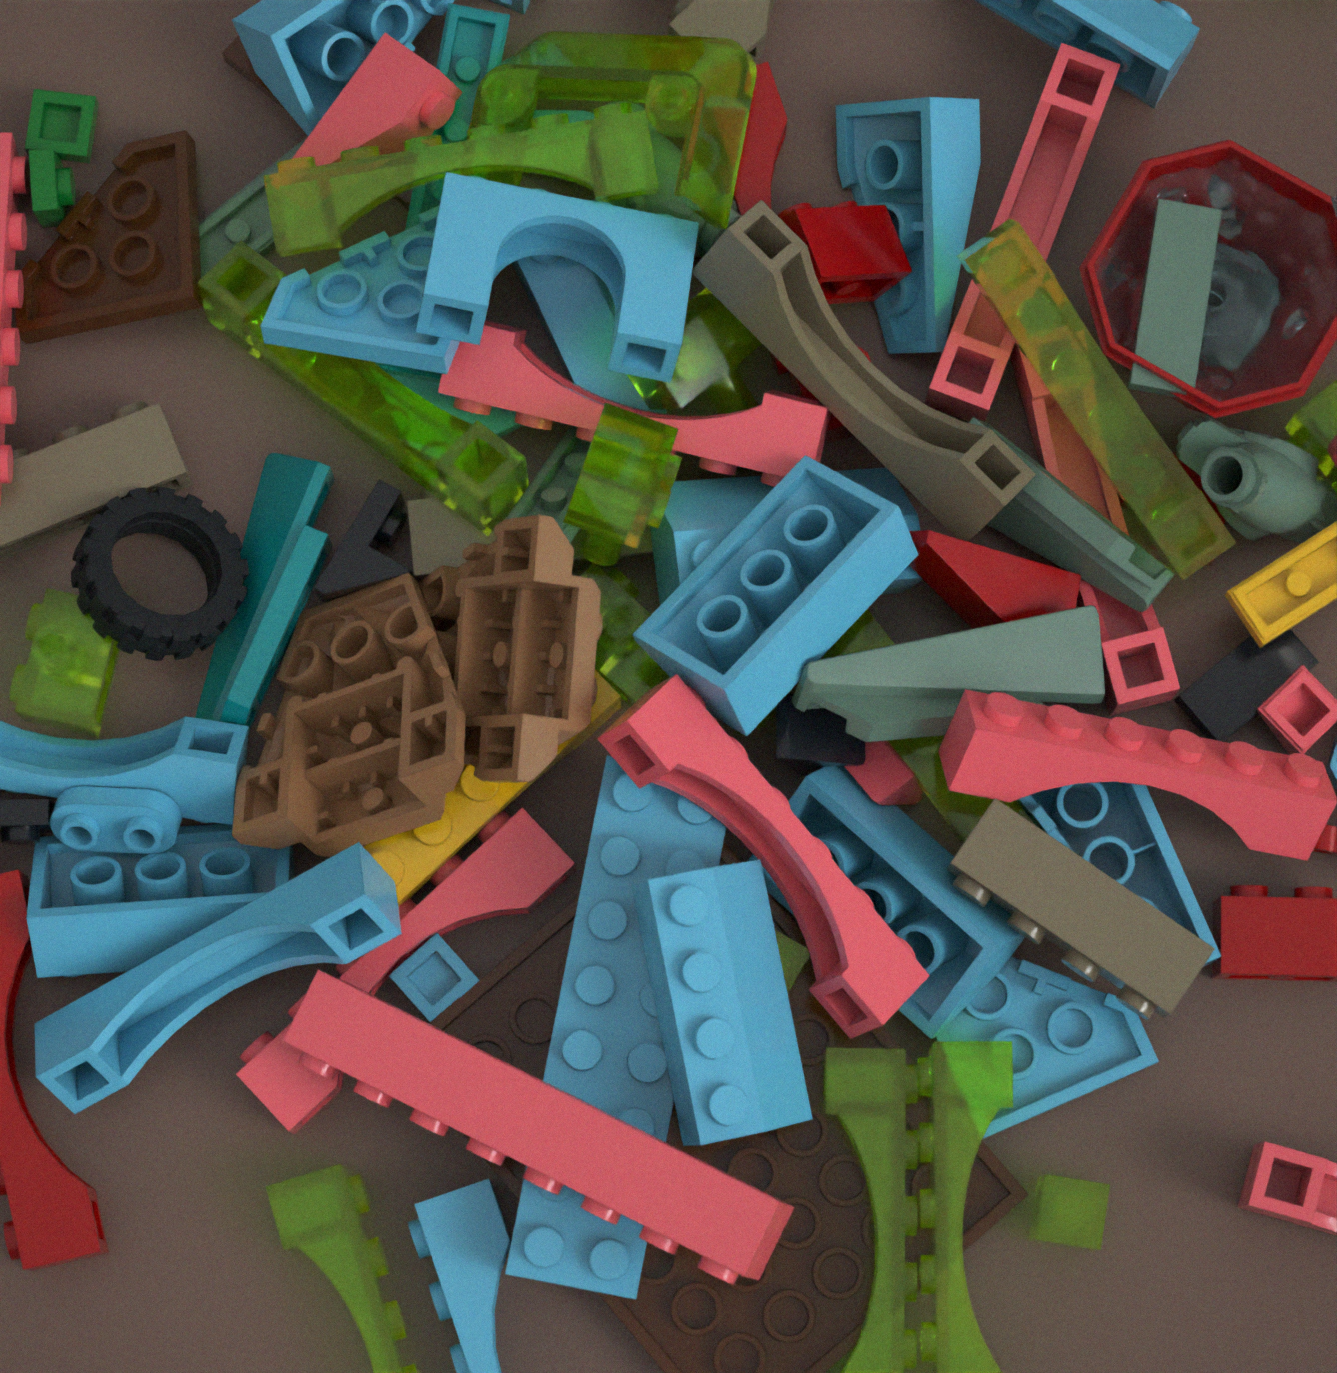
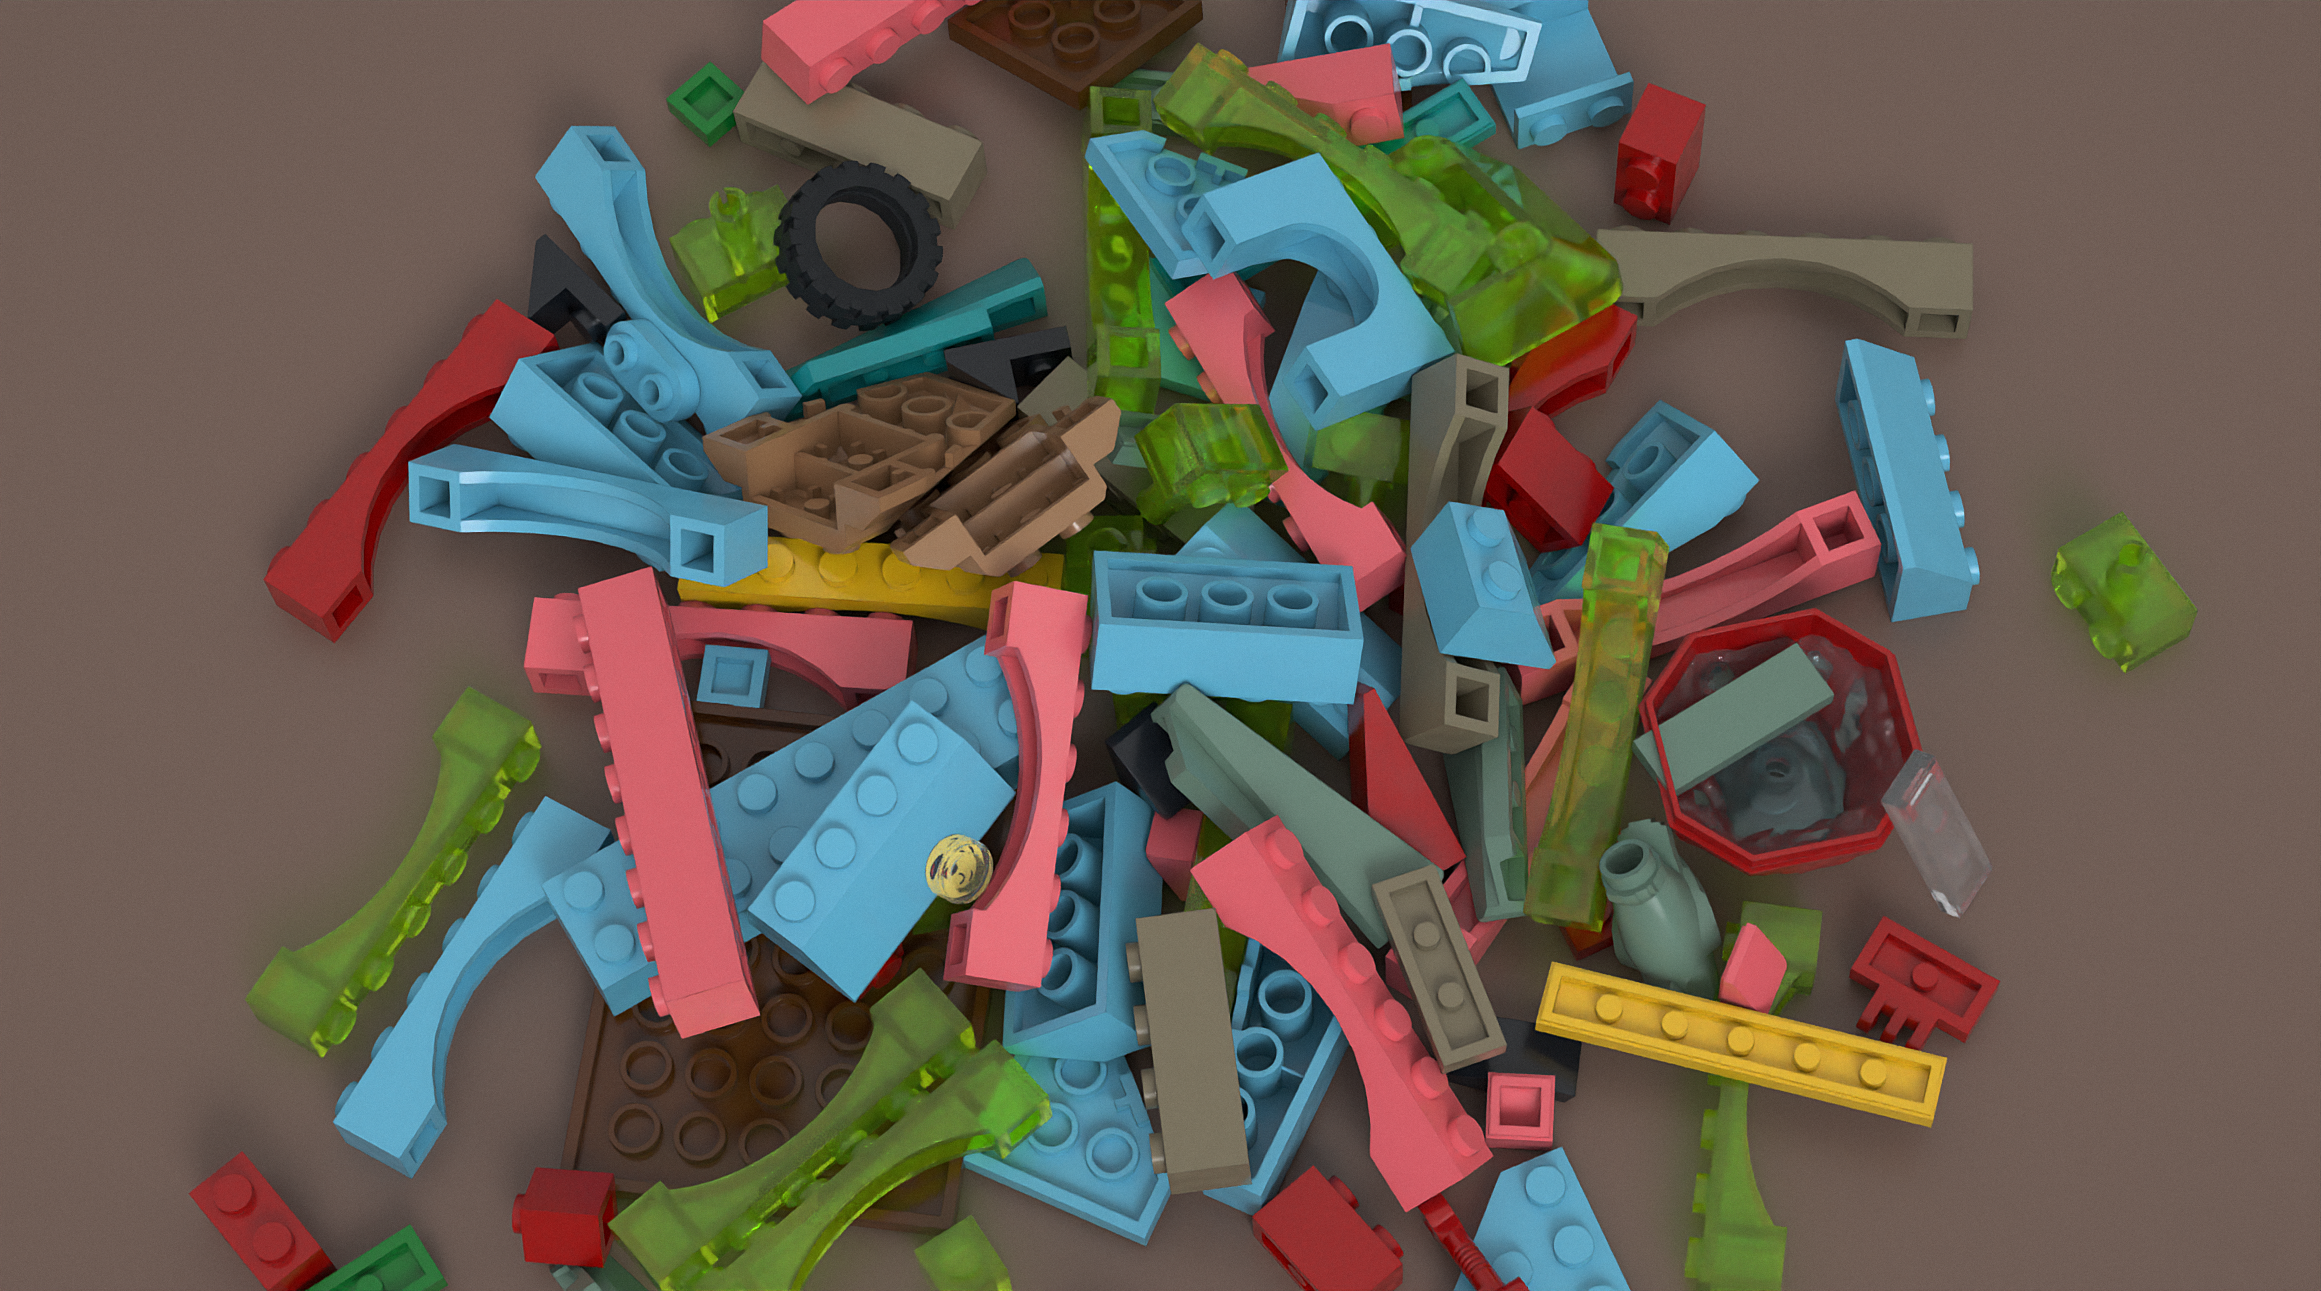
camera: 55 degrees right, 15 degrees down
(787, 954) = (959, 869): none -> clear tile
(916, 384) = (1480, 588): none -> medium azure slope
(1171, 678) = (1438, 969): none -> dark tan plate

